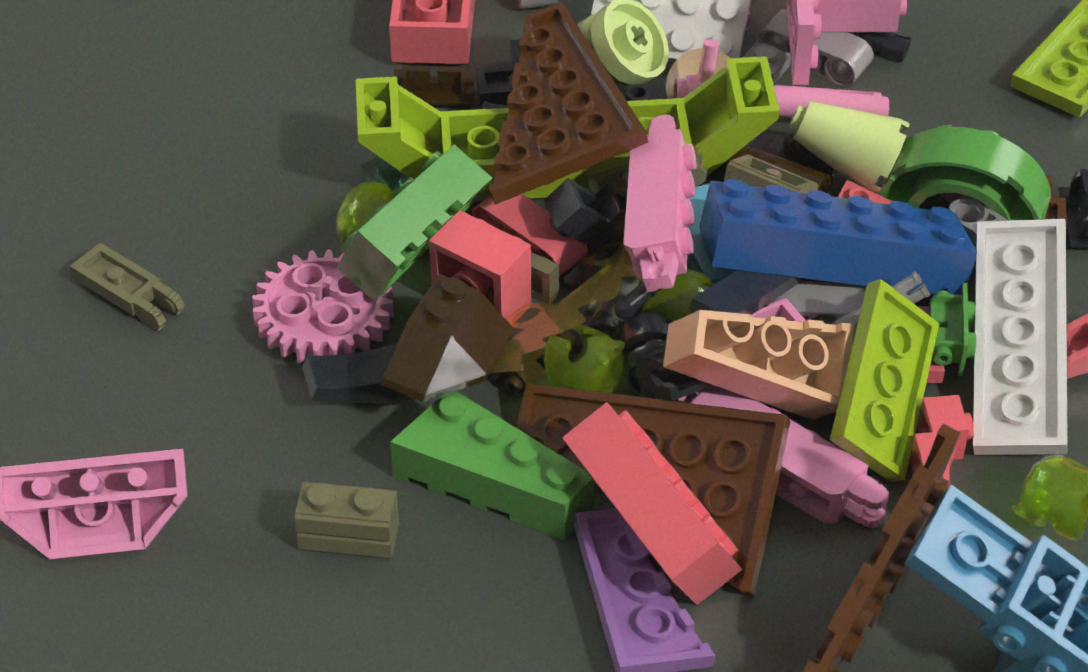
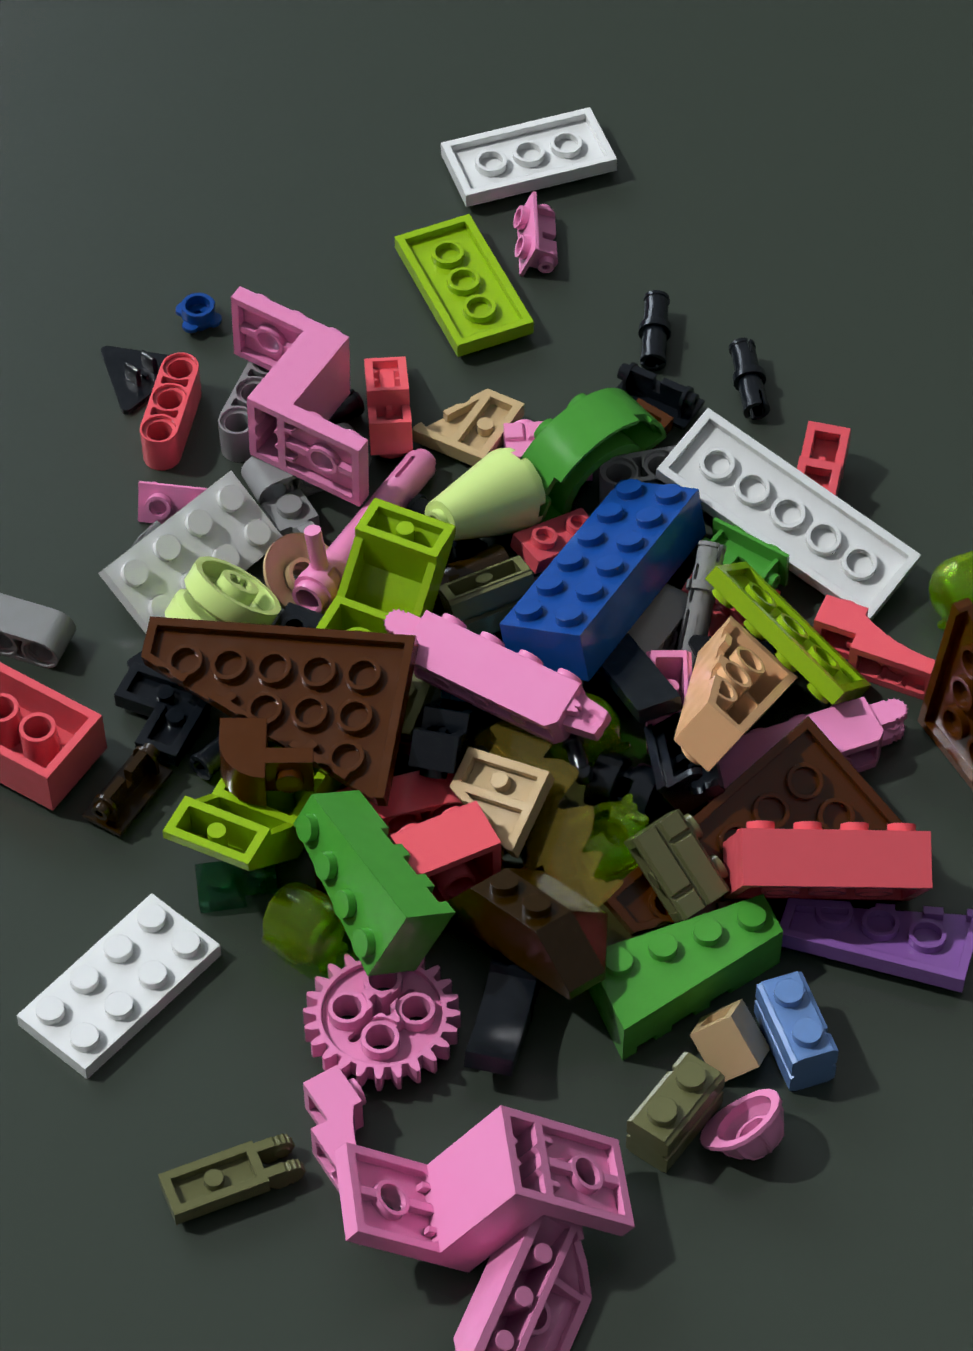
camera: 60 degrees left, 5 degrees up
(176, 416) = (483, 1189): none -> bright pink bracket
(192, 330) = (338, 1113): none -> bright pink slope
(263, 160) = (119, 985): none -> white plate
(362, 578) = (747, 1126): none -> bright pink piece
(447, 531) = (730, 1040): none -> tan panel
(473, 109) = (253, 768): none -> reddish brown brick
(483, 568) = (795, 1031): none -> medium blue brick
(562, 270) = (505, 791): none -> tan wing
(572, 394) = (678, 864): none -> olive brick
(913, 62) = (388, 406): none -> coral slope
(930, 114) = (471, 428): none -> tan wing

